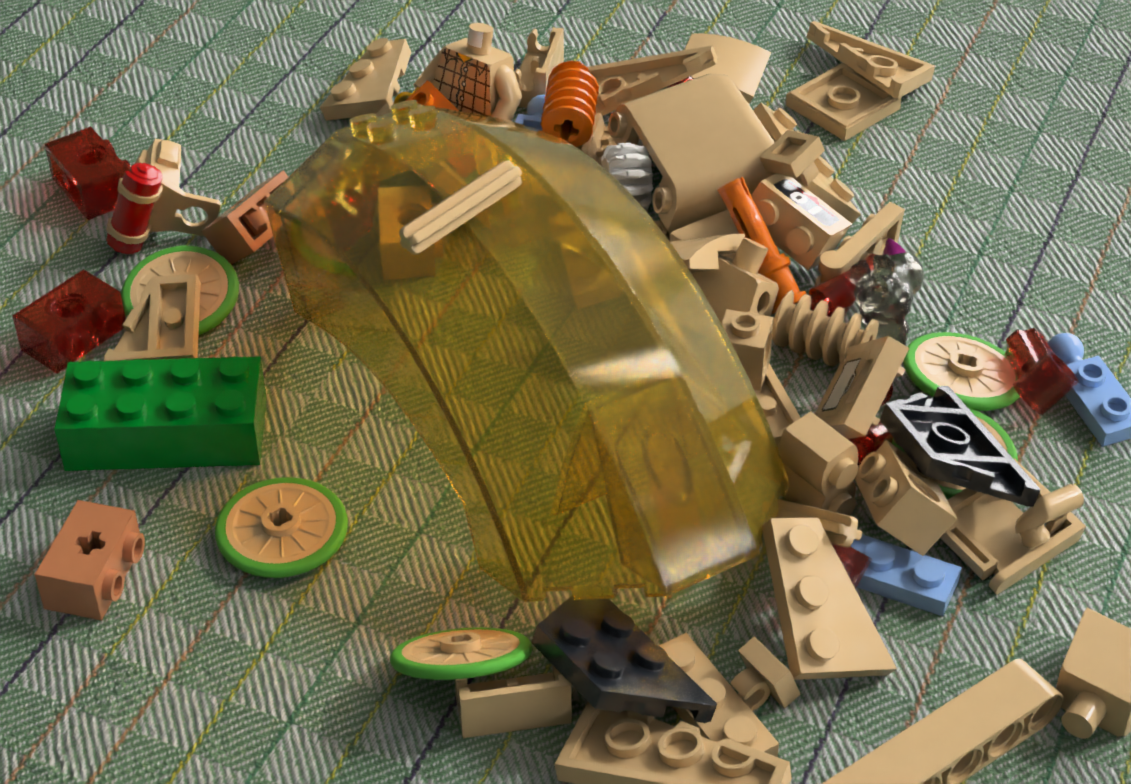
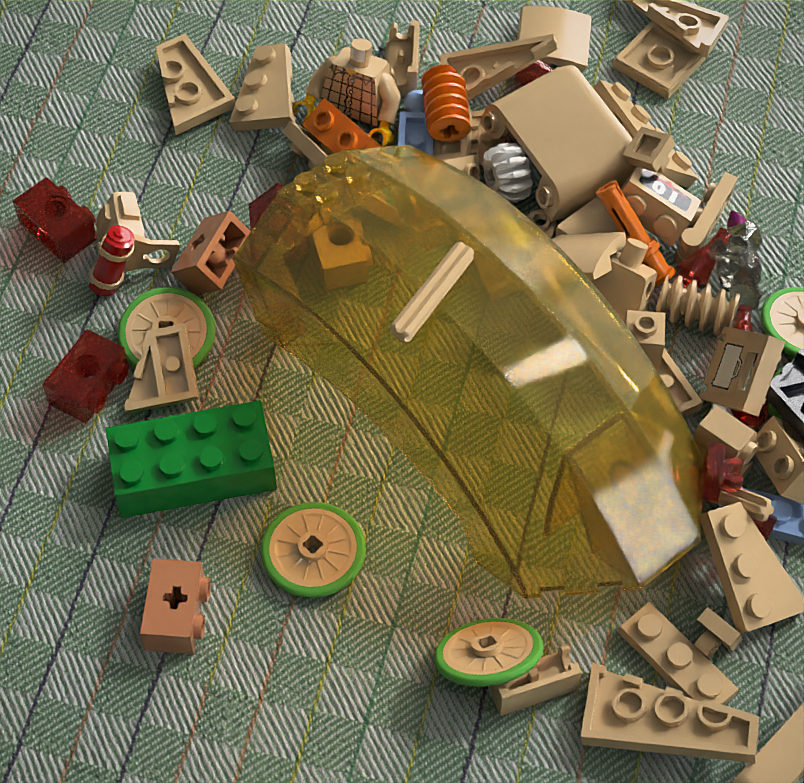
camera: 10 degrees left, 15 degrees up
(287, 70) = (191, 85): none -> tan wing
(616, 661) = (609, 644): black wing -> none
(800, 486) = (717, 473): none -> clear red tile

